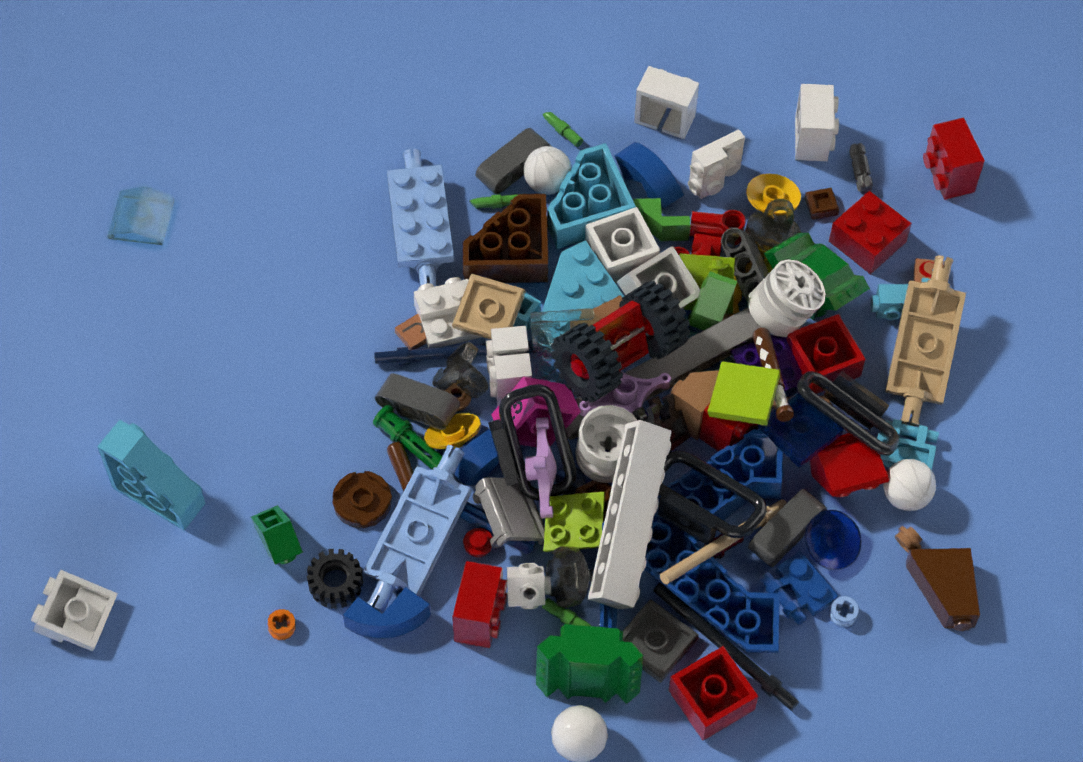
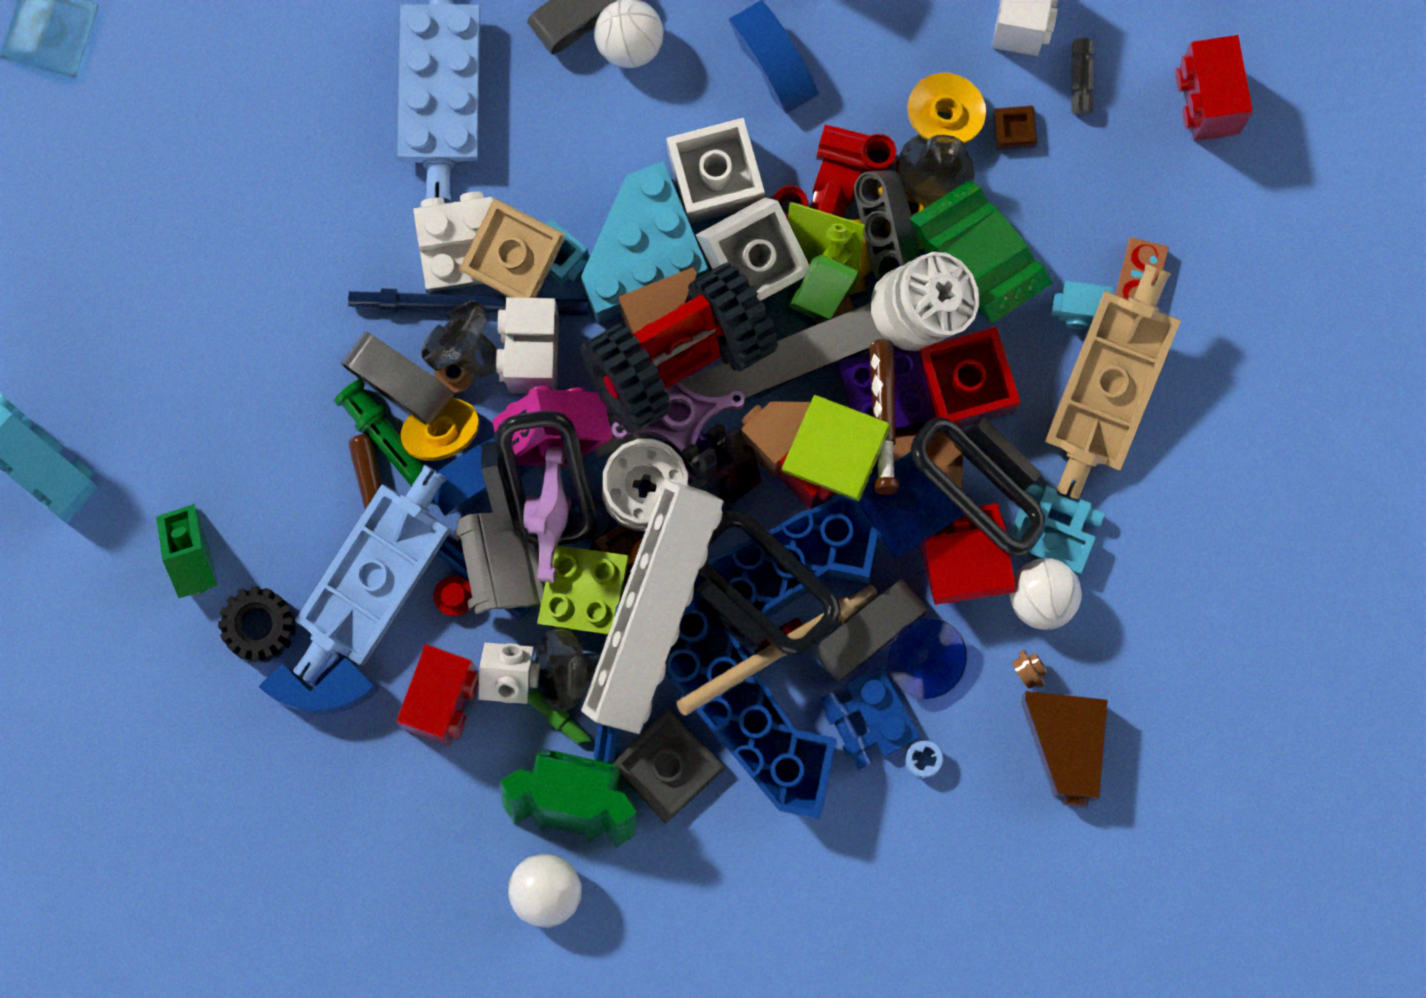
camera: 10 degrees right, 20 degrees up
(282, 633) = (181, 691): orange bush -> none
(362, 499) = (307, 510): reddish brown tile -> none
(411, 332) = (405, 264): nougat tile -> none
(493, 201) = (553, 67): bright green piece -> none
(511, 243) = (559, 148): reddish brown brick -> none
(544, 329) = (585, 319): clear light blue plate -> none
(587, 195) = (680, 85): medium azure brick -> none
(666, 227) = (764, 120): bright green slope -> none
(713, 693) = (727, 857): red brick -> none
(714, 162) = (860, 59): white plate -> none
(770, 684) = (806, 849): black bar -> none
(869, 232) = (1072, 189): red brick -> none

